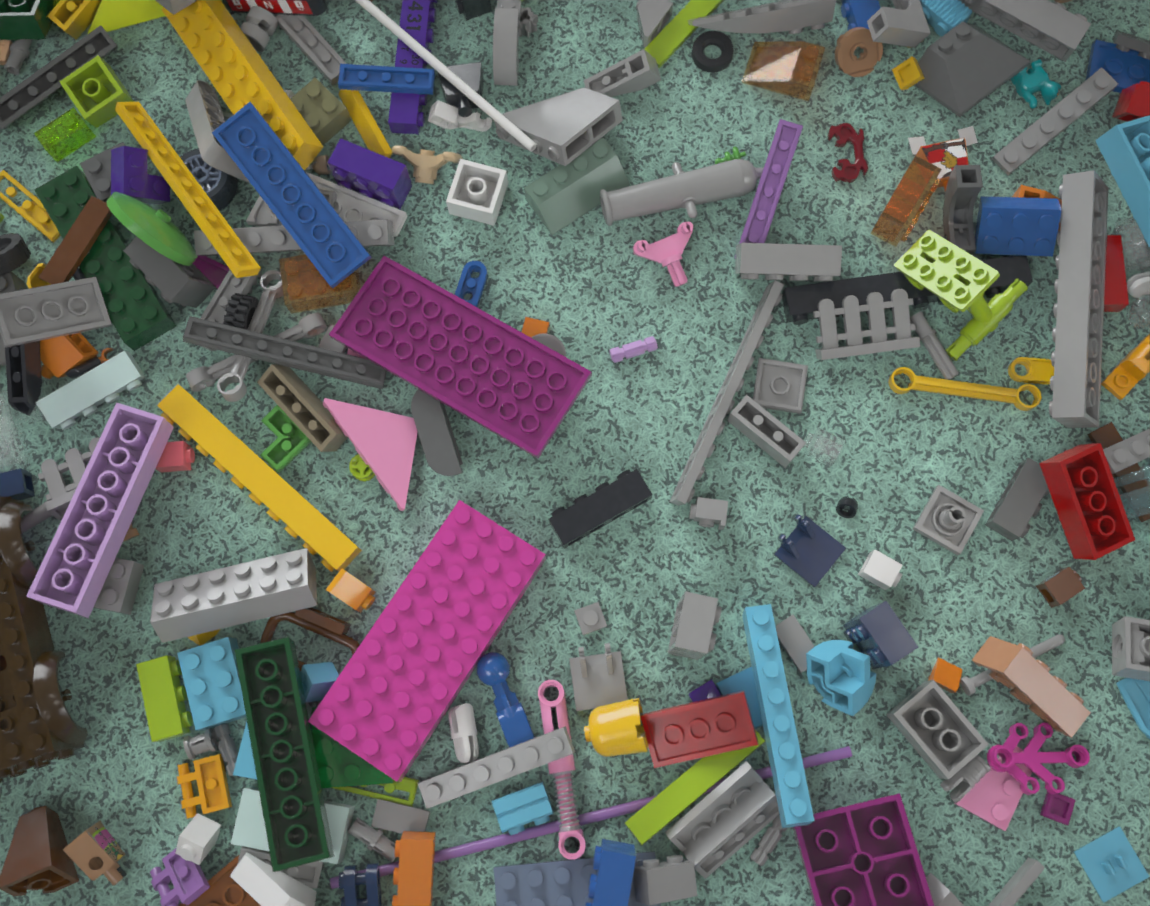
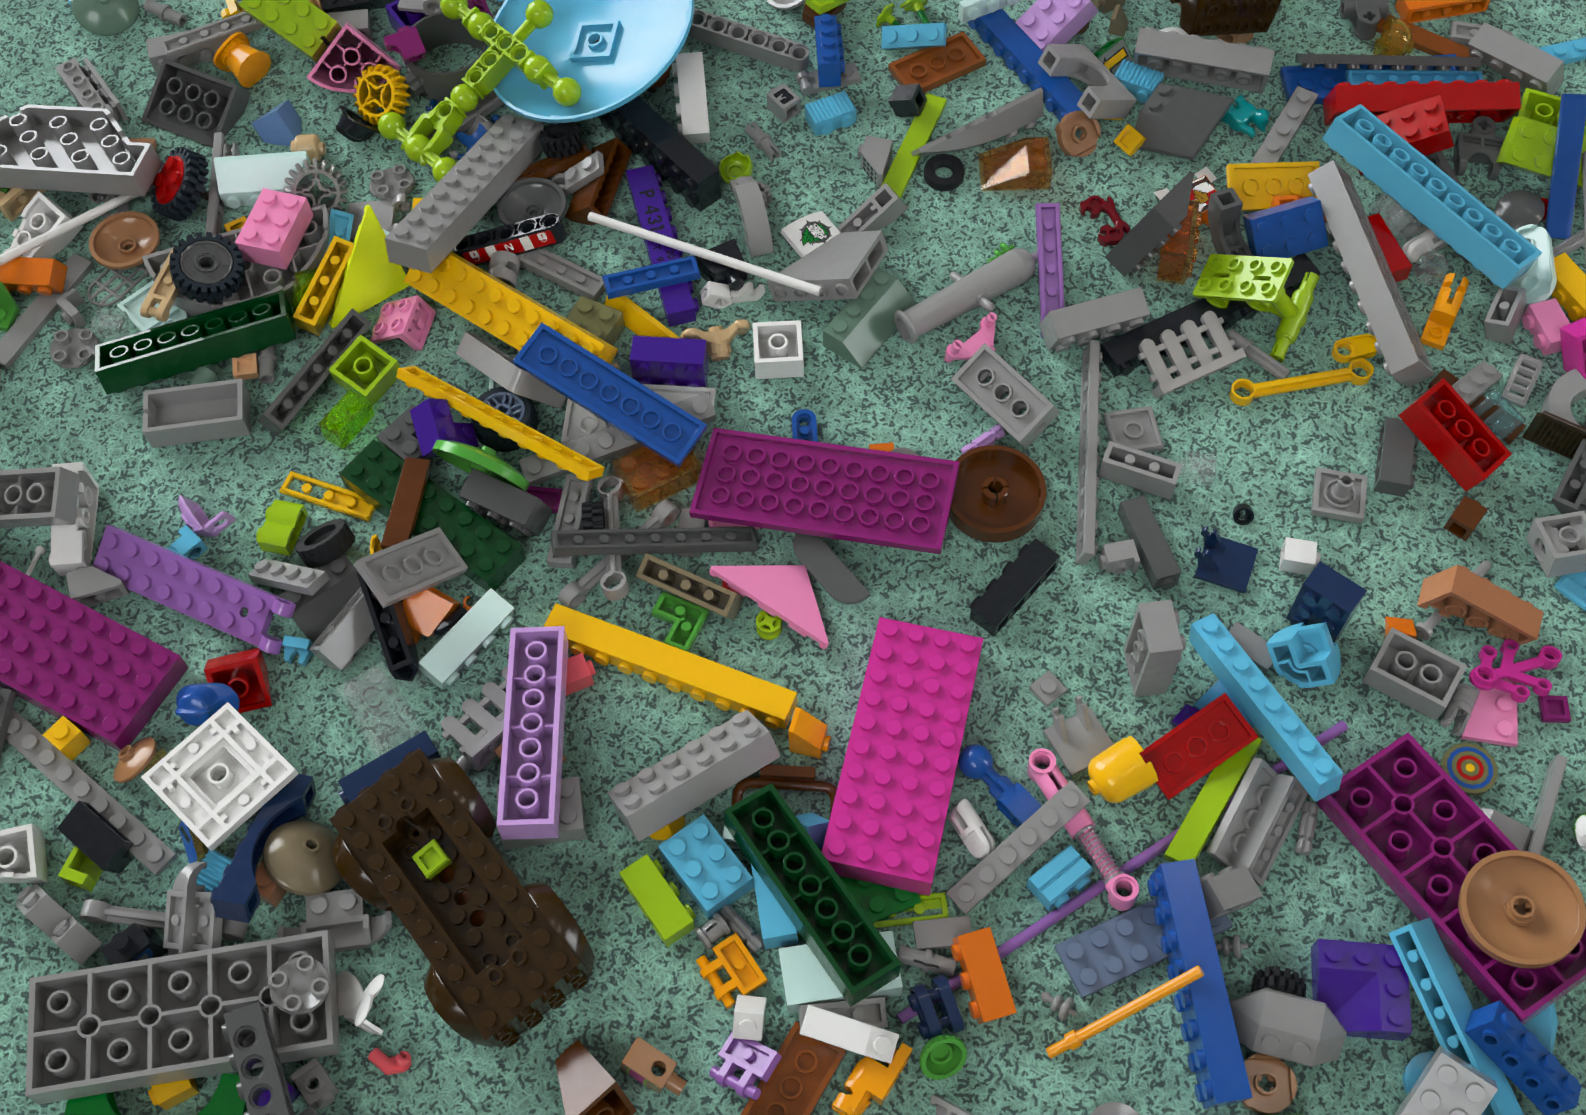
camera: 20 degrees left, 15 degrees down
(153, 51) = (404, 319): none -> bright pink bracket
(558, 76) = (809, 232): none -> white slope
(637, 427) = (1018, 489): none -> reddish brown piece
(654, 309) = (1004, 380): none -> light grey brick
(744, 507) = (1150, 543): none -> dark grey brick
(884, 184) = (1153, 229): none -> dark grey slope
(948, 837) = (1470, 768): none -> tile
(1011, 164) = (1260, 182): none -> yellow plate

